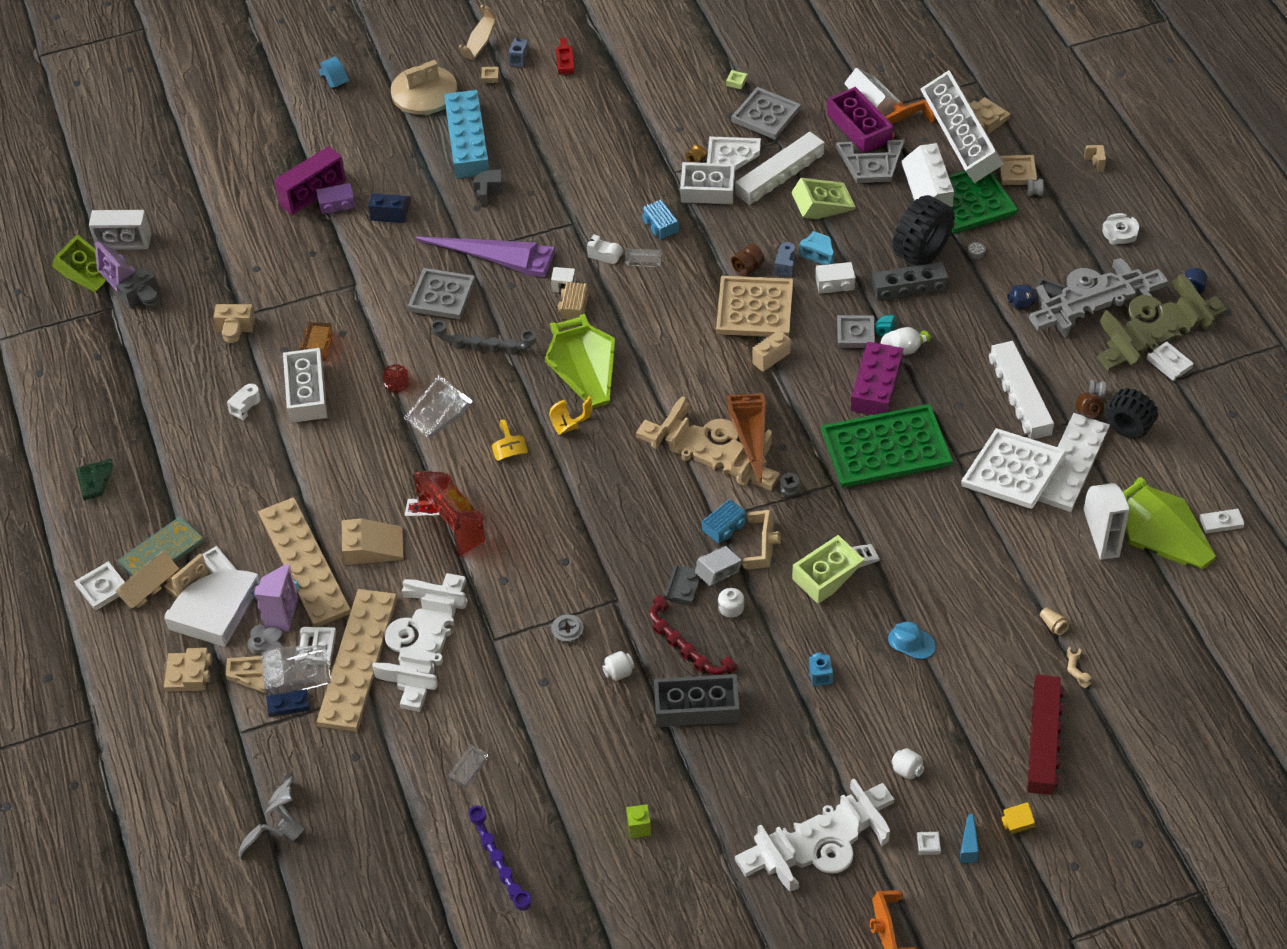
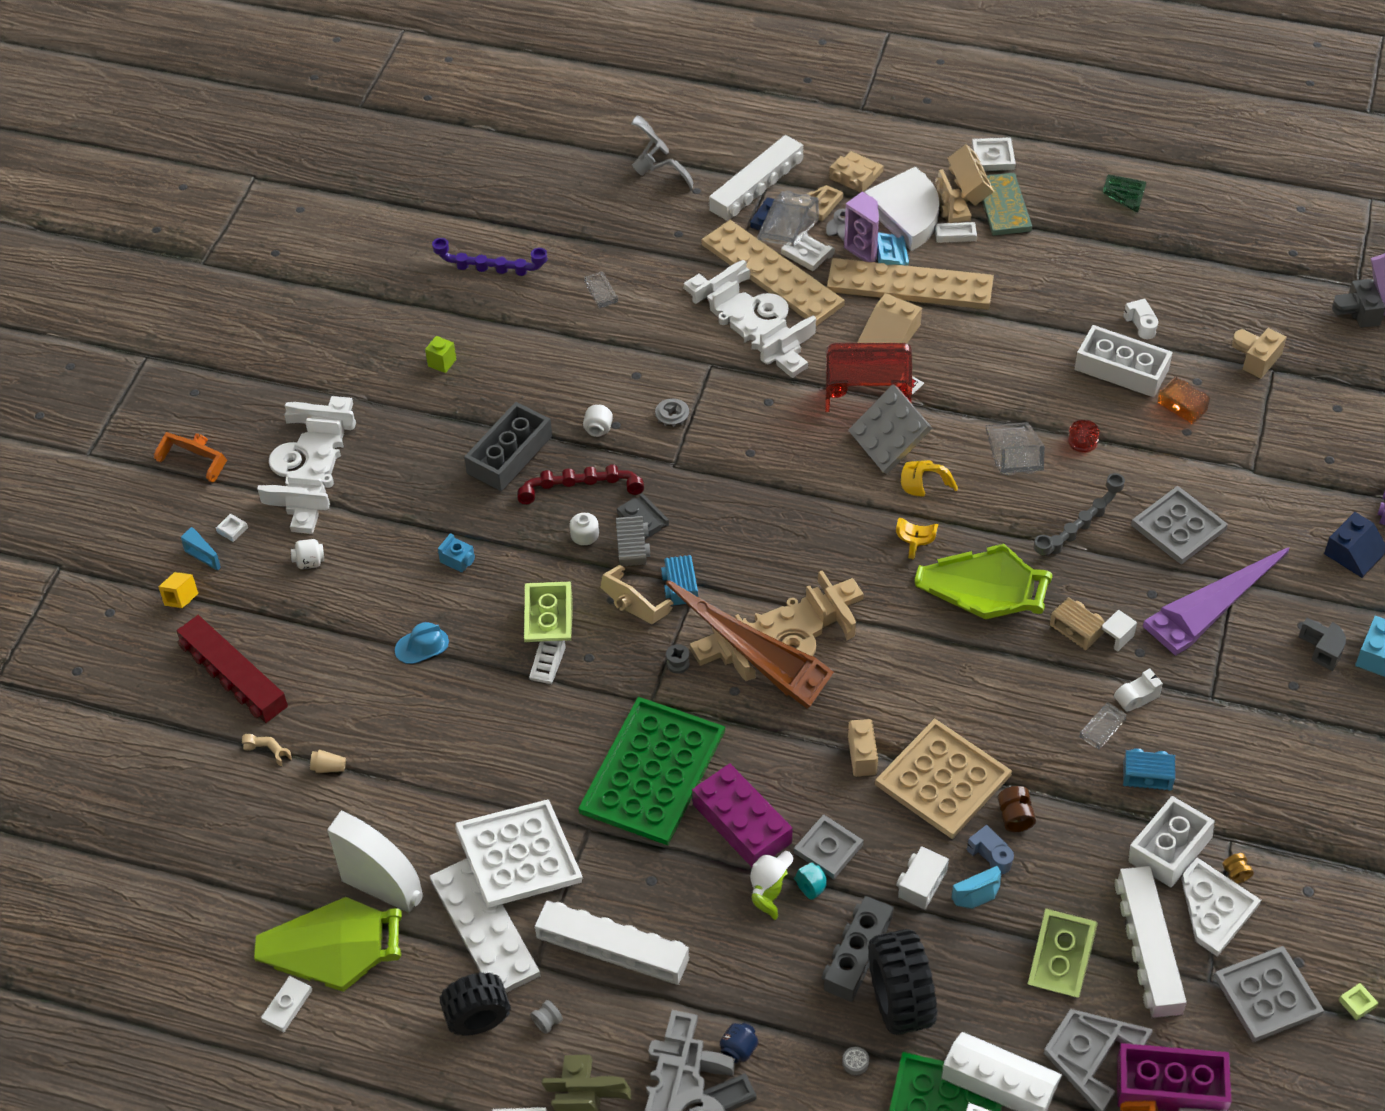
camera: 125 degrees right, 0 degrees up
(248, 733) = (756, 178): none -> white brick
(486, 474) = (890, 429): none -> light grey plate
(1089, 405) = (530, 986): reddish brown head -> none

